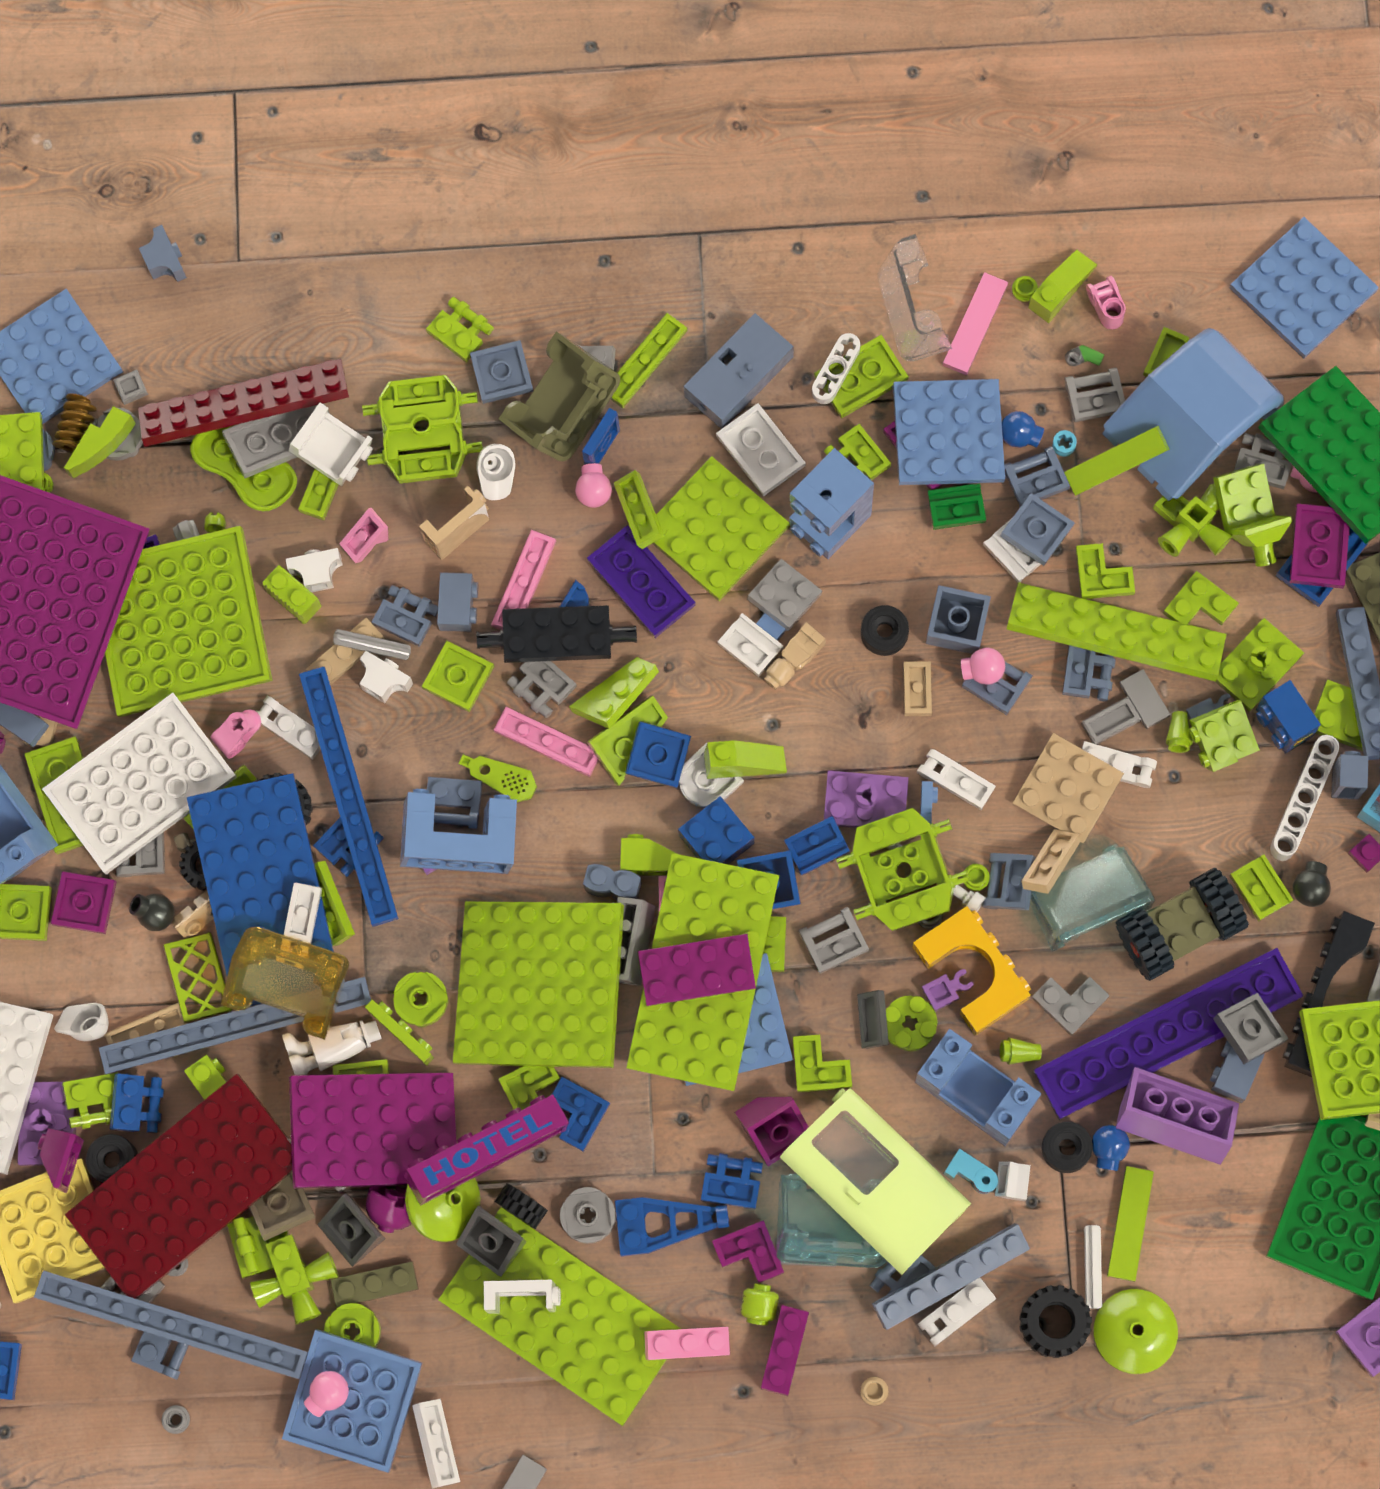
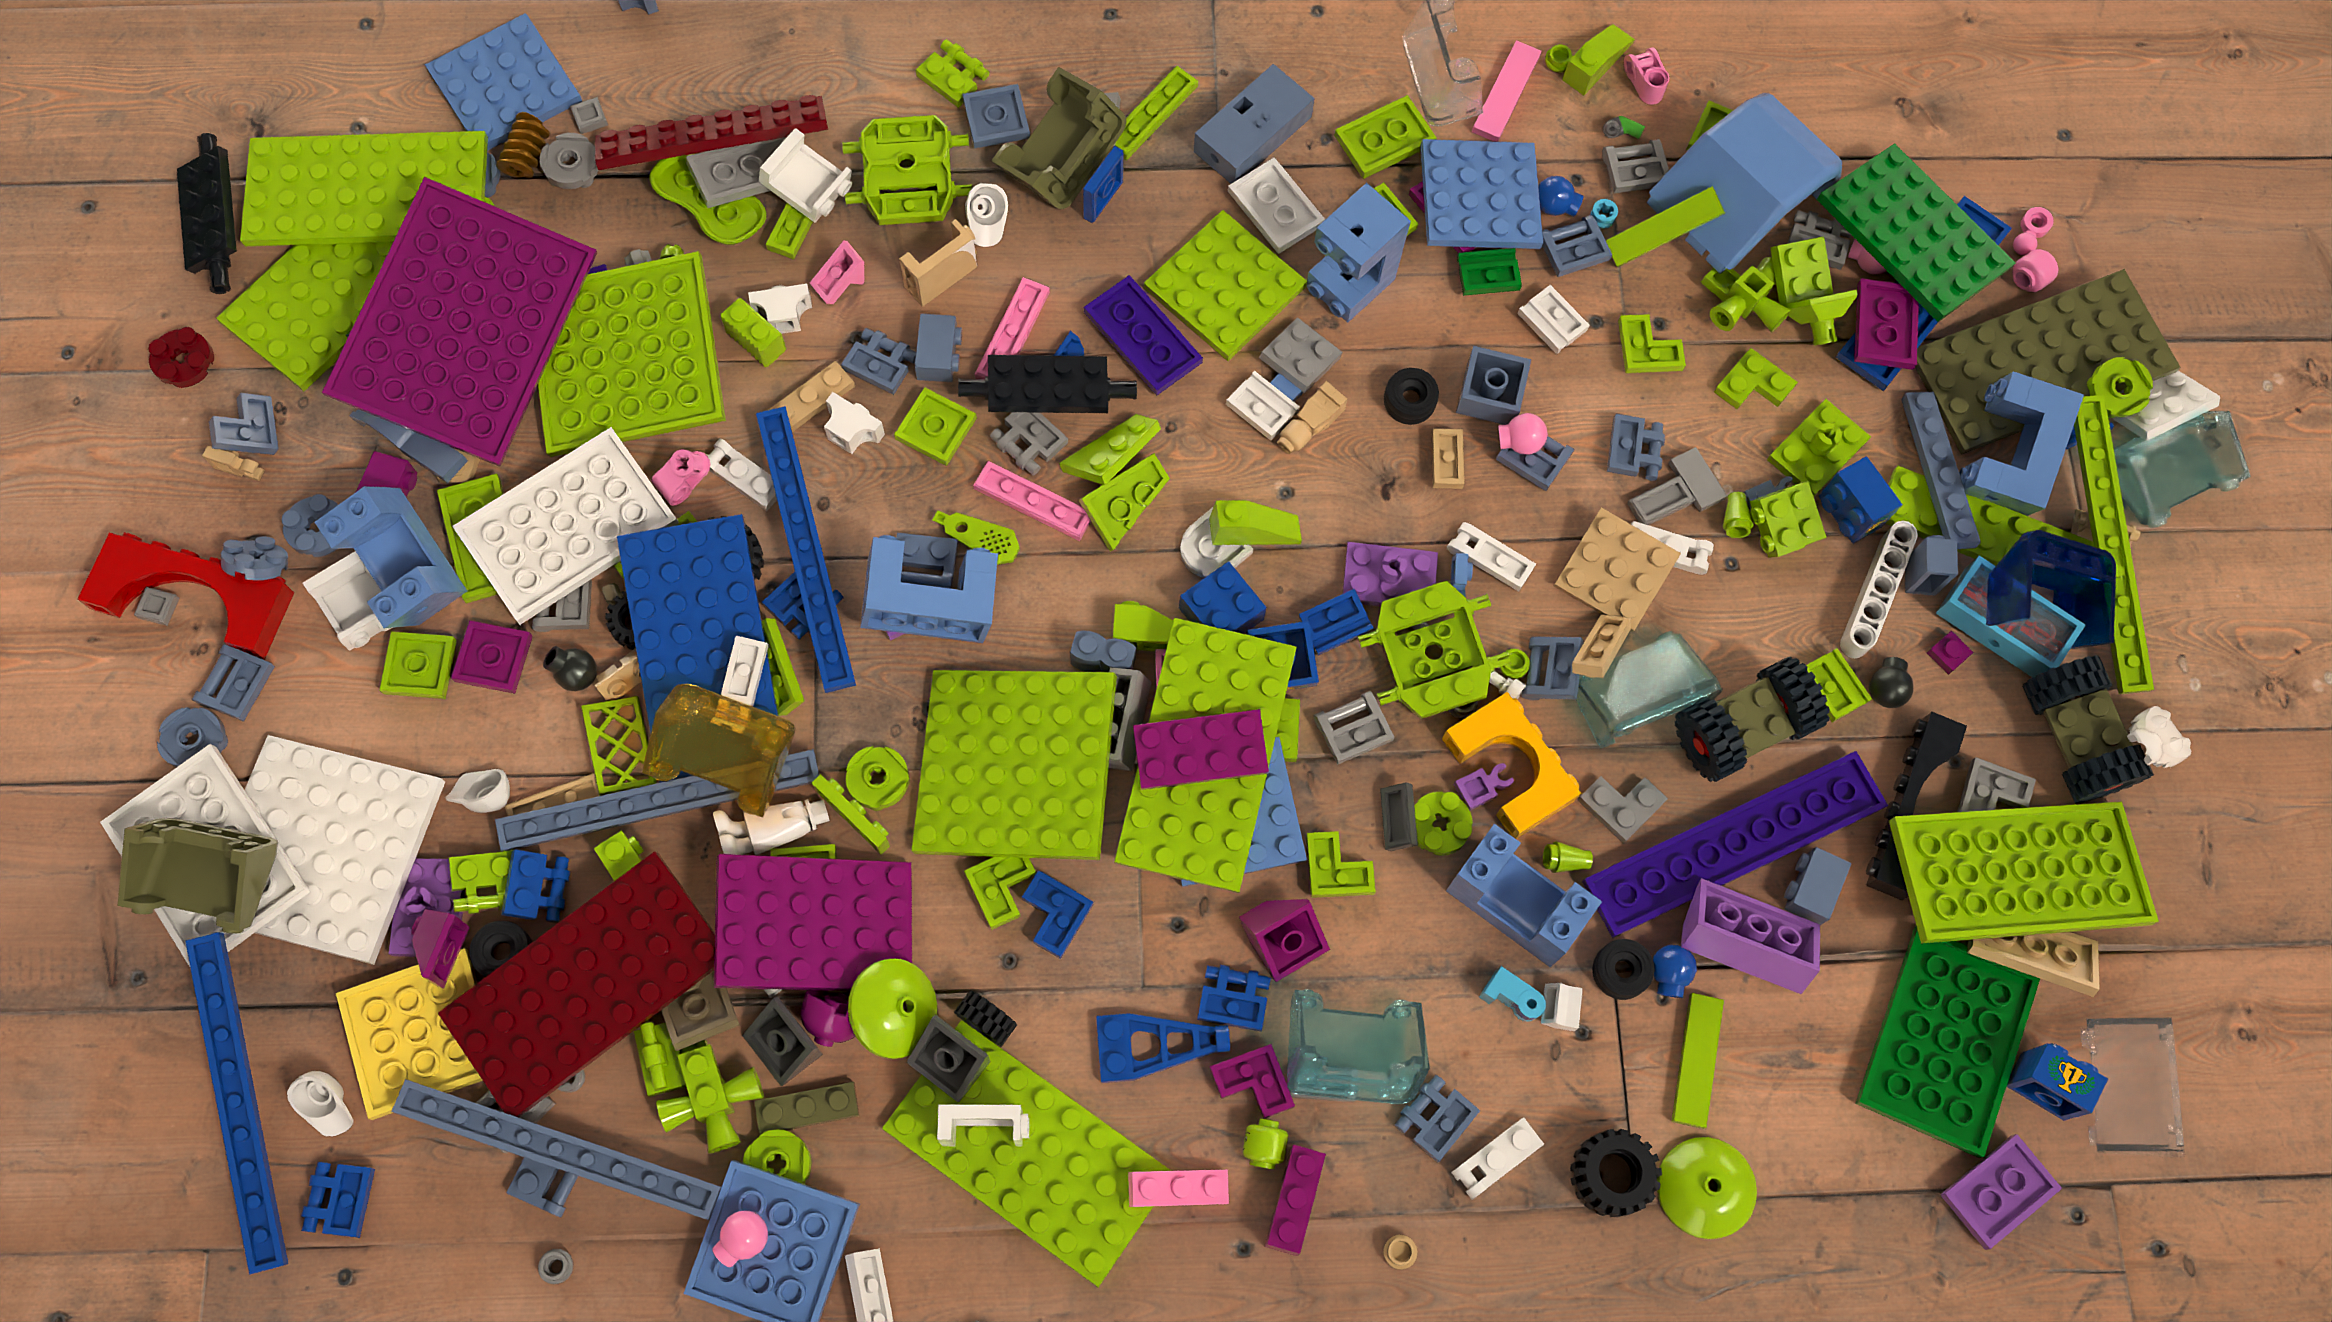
camera: 10 degrees left, 5 degrees down
(100, 442) = (548, 164): lime slope -> none
(371, 644) = (842, 387): light grey axle -> none
(486, 1149) = (945, 949): magenta brick -> none
(593, 487) = (1092, 234): bright pink piece -> none
(600, 1225) = (1049, 1021): light grey plate -> none
(638, 509) = (1142, 259): lime plate -> none
(658, 754) = (1157, 517): blue plate -> none
(821, 381) = (1359, 113): white beam -> none
(875, 1180) = (1404, 1000): yellowish green piece -> none
(950, 1276) = (1490, 1116): sand blue plate -> none
(1037, 529) = (1579, 295): sand blue plate -> none
(1093, 1273) = (1656, 1108): white axle -> none
(1116, 632) = (1667, 406): lime plate -> none
(1250, 1028) = (1834, 838): hinge -> none
(1303, 287) = (1853, 71): medium blue plate -> none

